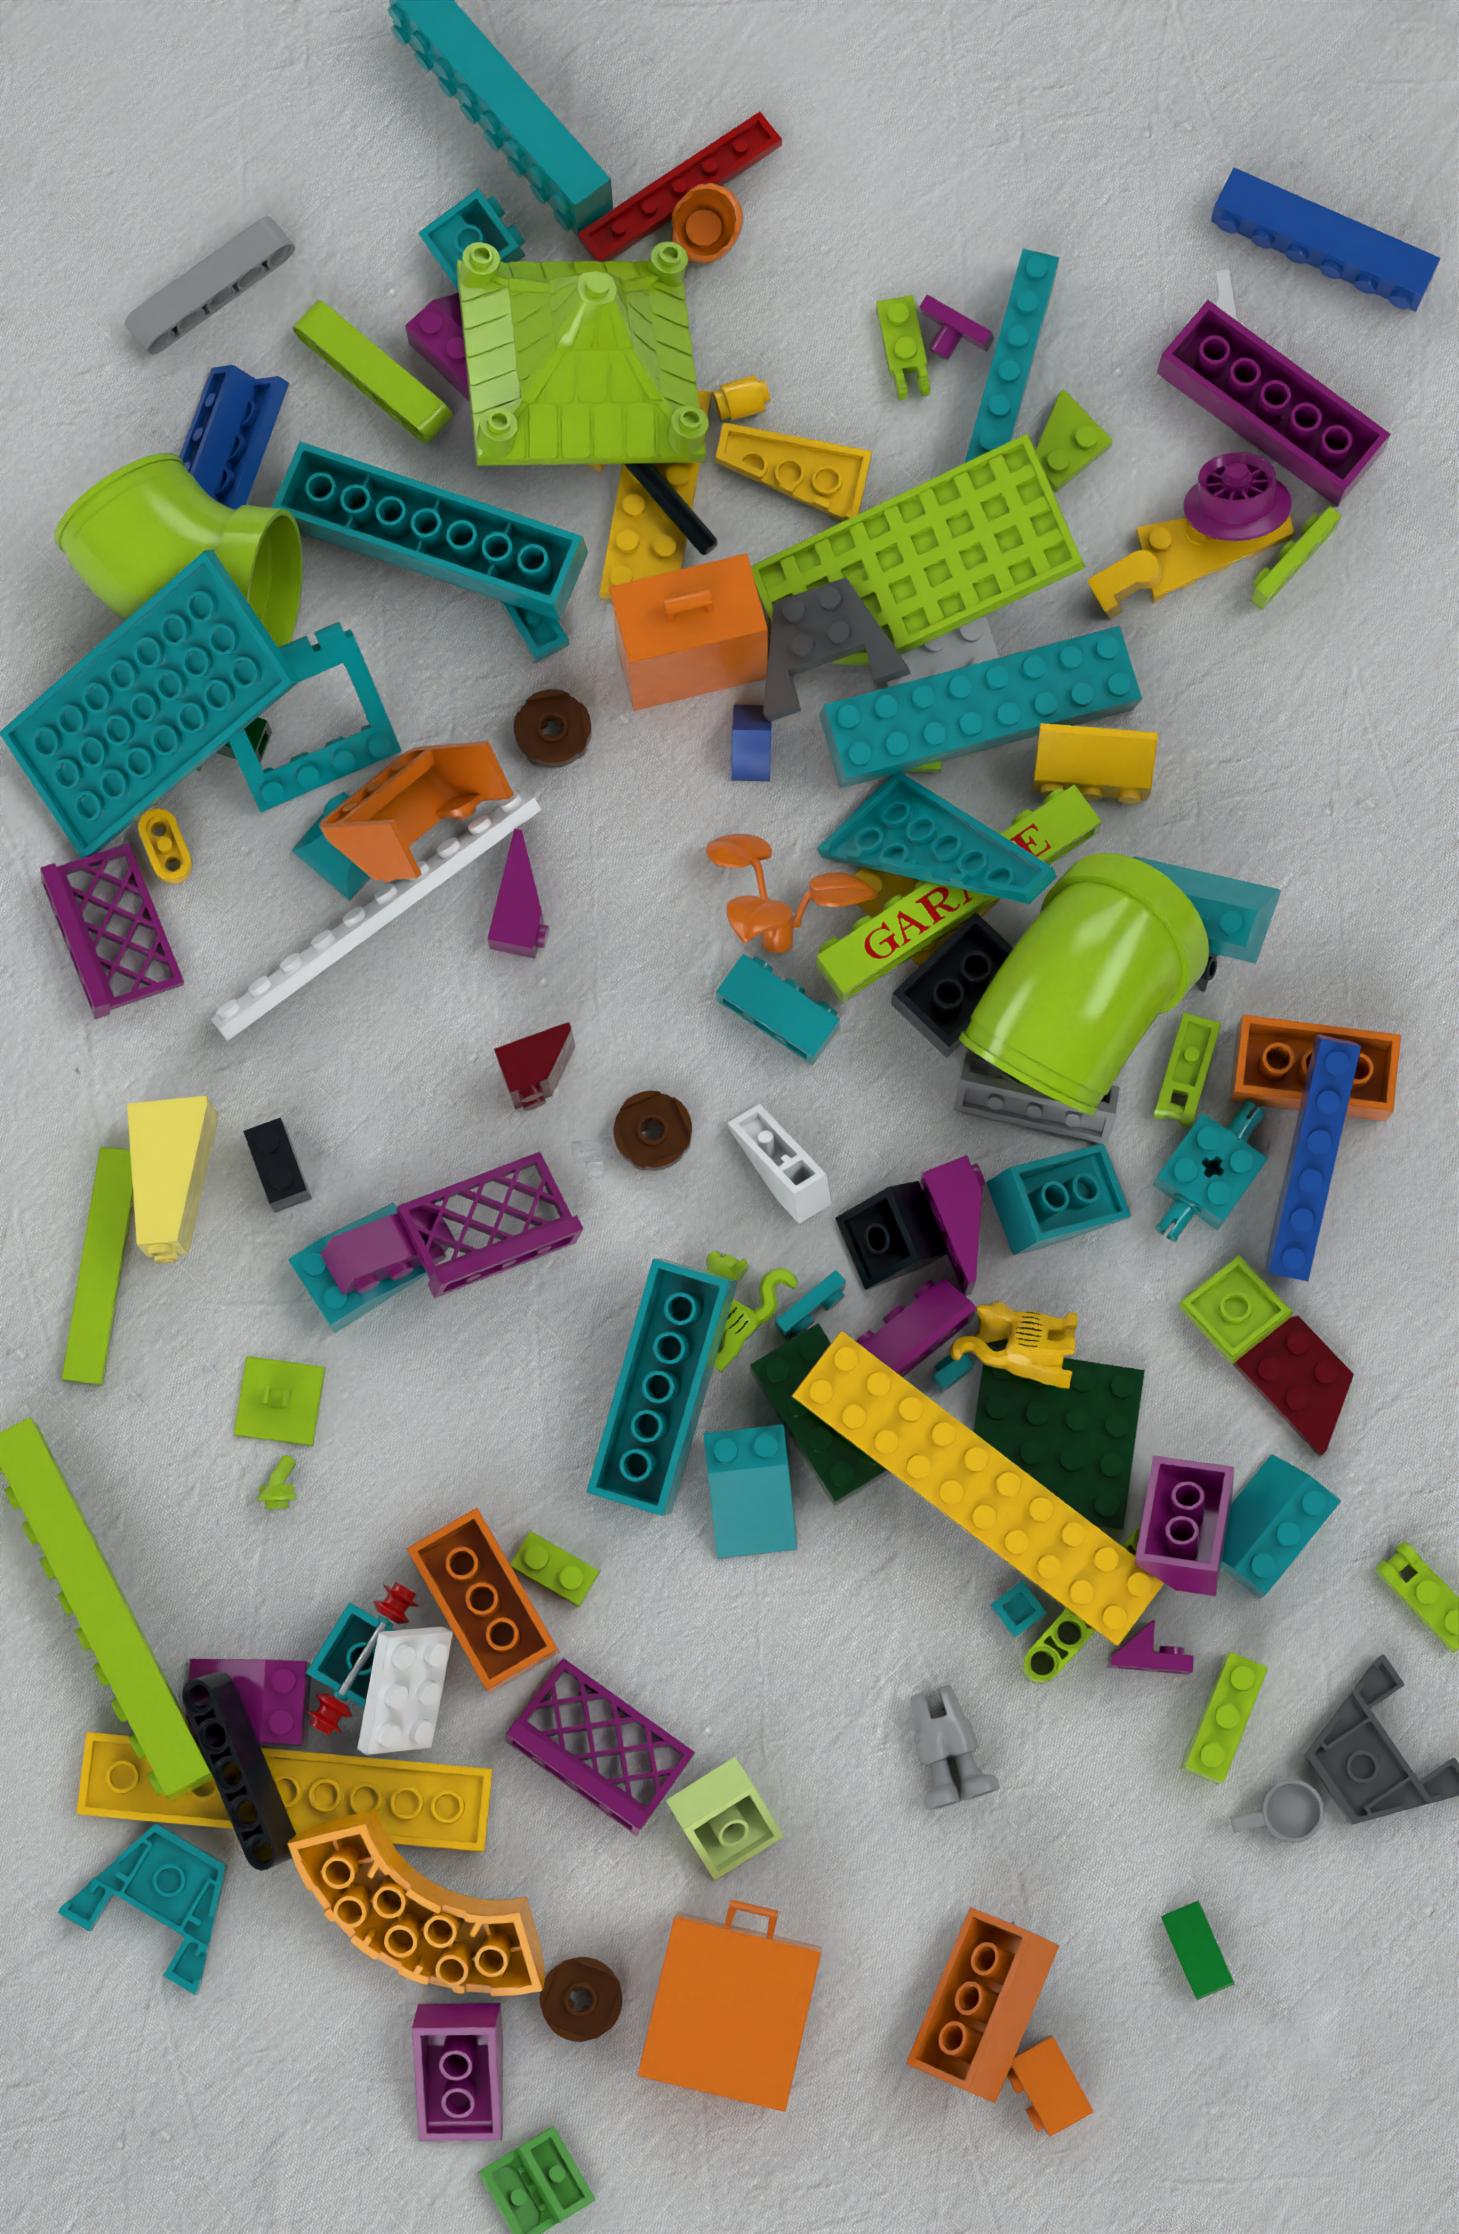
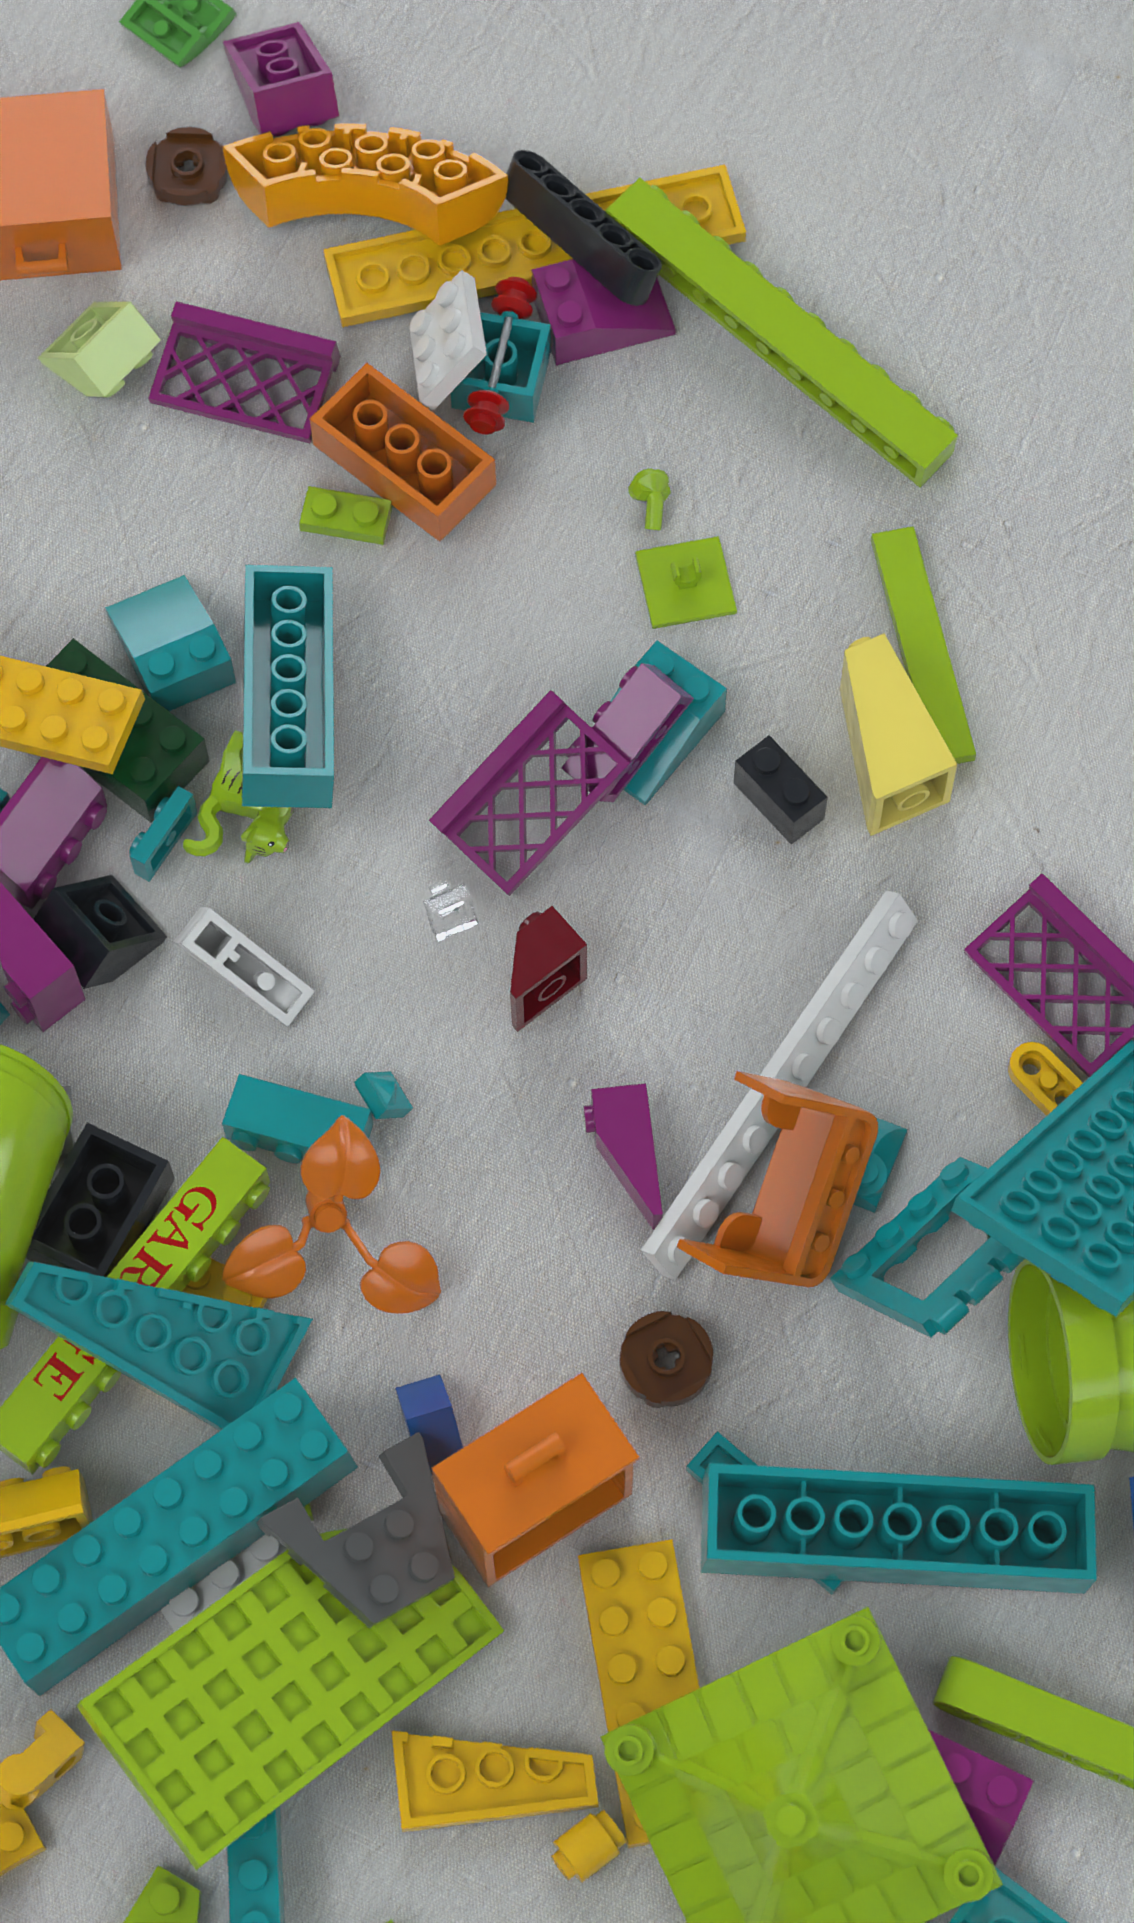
camera: 160 degrees right, 10 degrees down
(171, 1884) = (617, 141): teal wing -> none
(673, 1140) = (394, 932): reddish brown plate -> none
(674, 506) = (614, 1663): black axle -> none
(701, 1011) = (383, 1095): none -> teal tile

